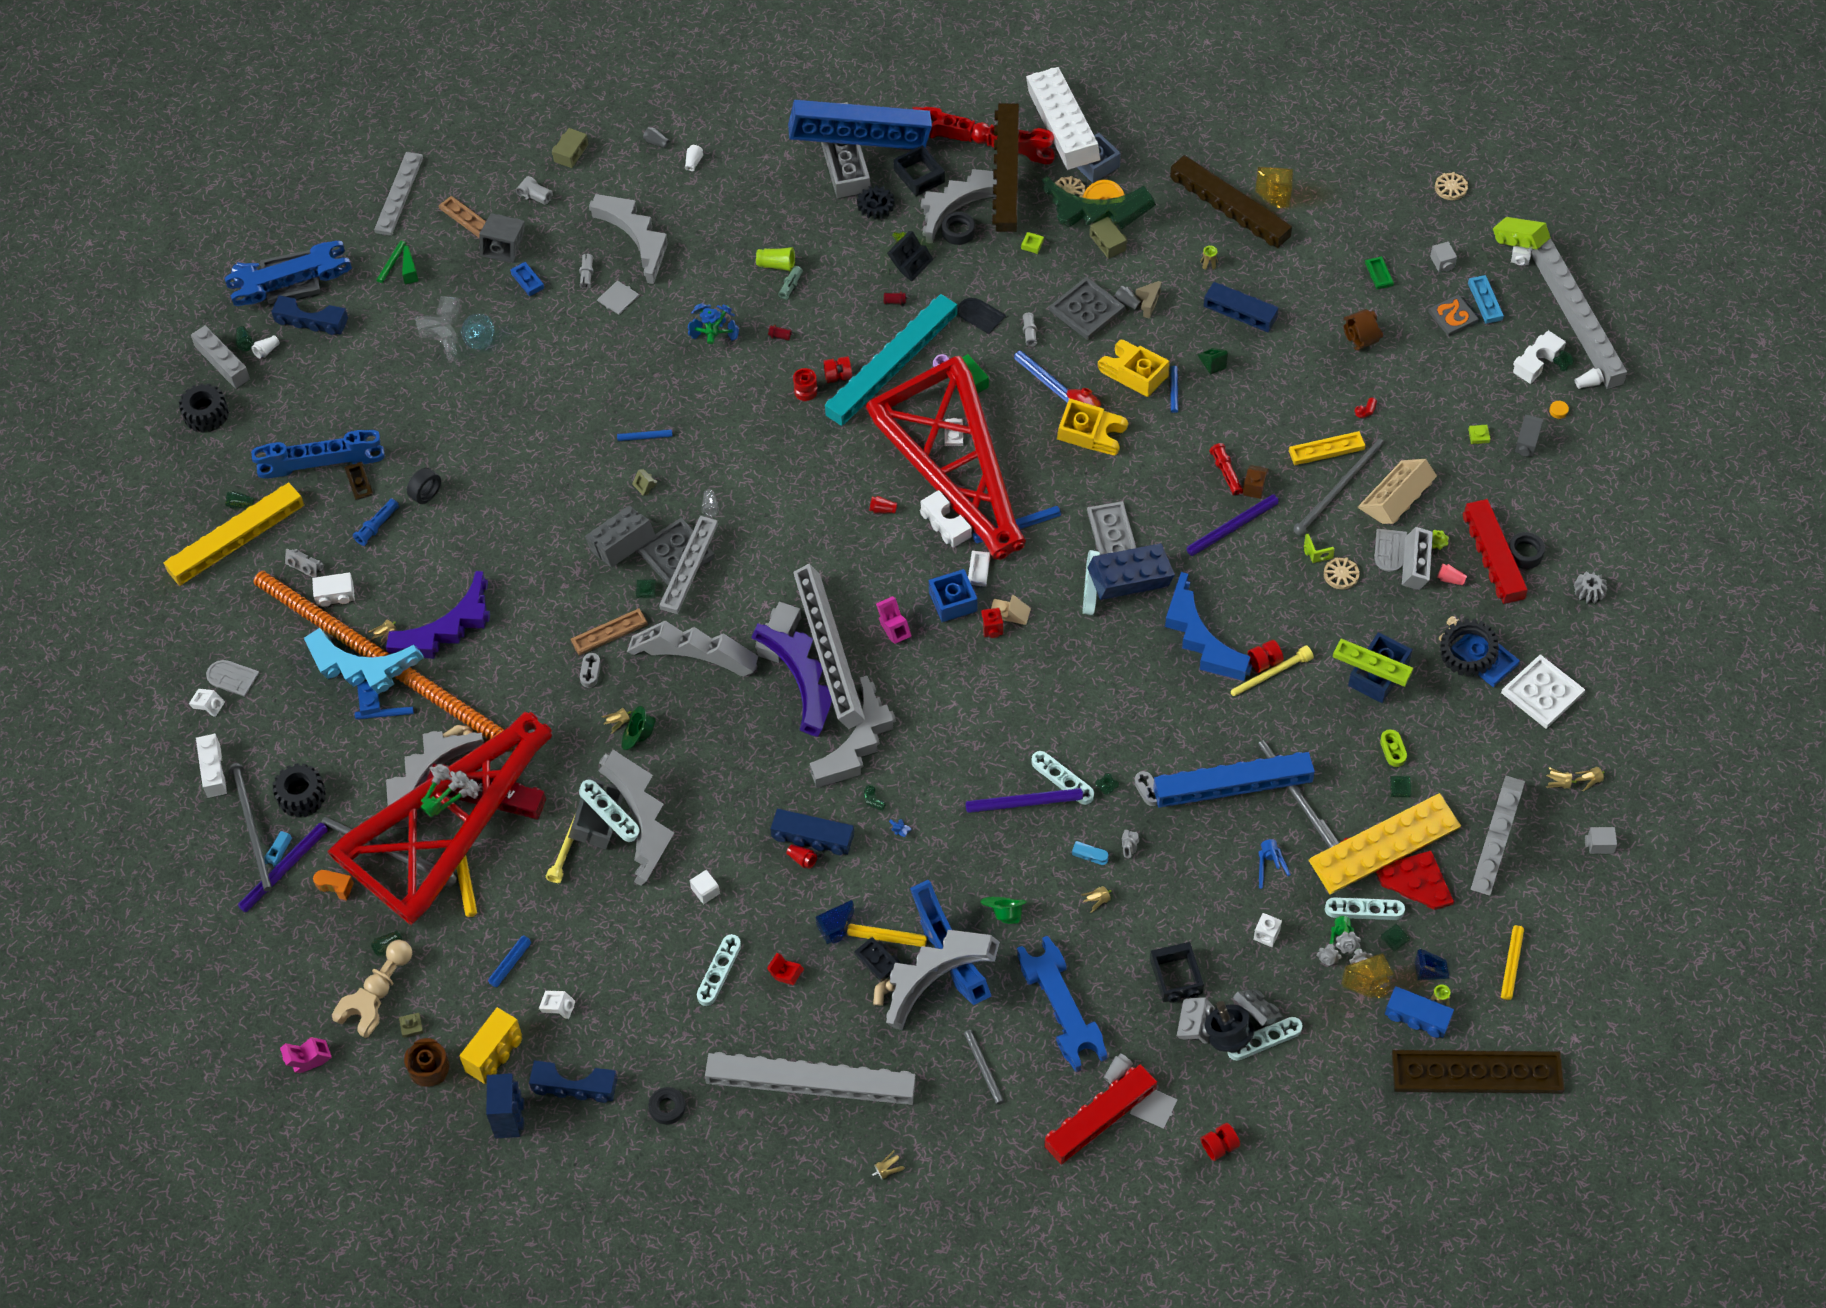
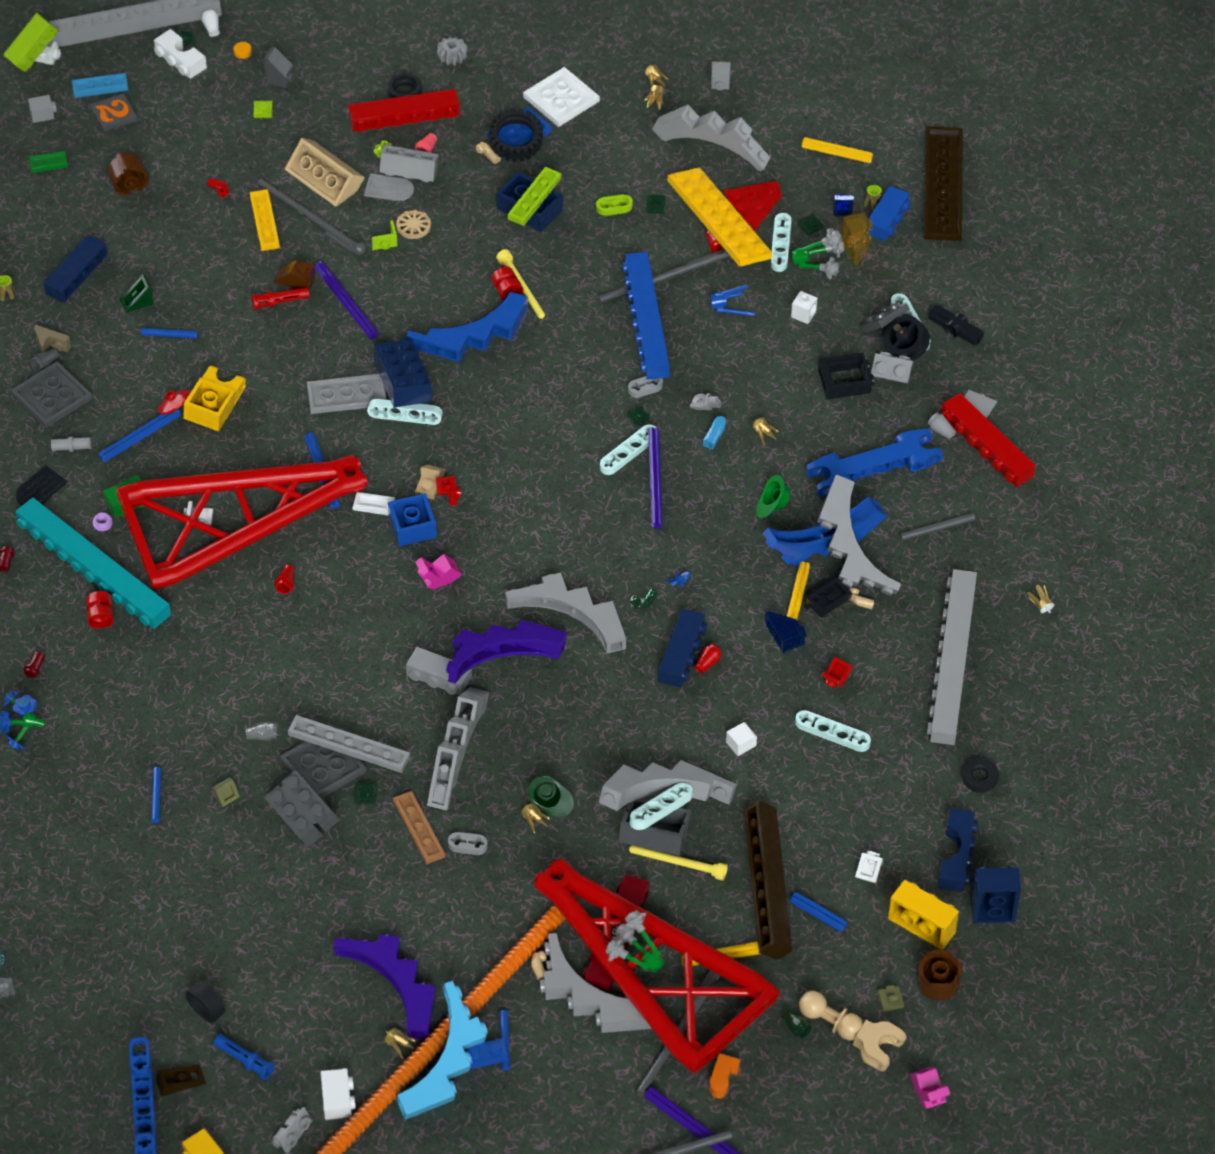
camera: 90 degrees left, 5 degrees down
(279, 847) = (672, 1133): dark azure bar -> none
(302, 802) = (606, 1127): black tyre -> none
(538, 912) = (768, 880): none -> dark brown brick
(805, 384) = (116, 638): red wheel -> none
(829, 646) = (468, 618): light grey brick -> none
(952, 530) = (299, 533): white arch -> none
(1135, 367) = (142, 356): yellow brick -> none
(1222, 1140) = (1014, 357): red wheel -> none
(1263, 1083) = (956, 325): none -> black piece

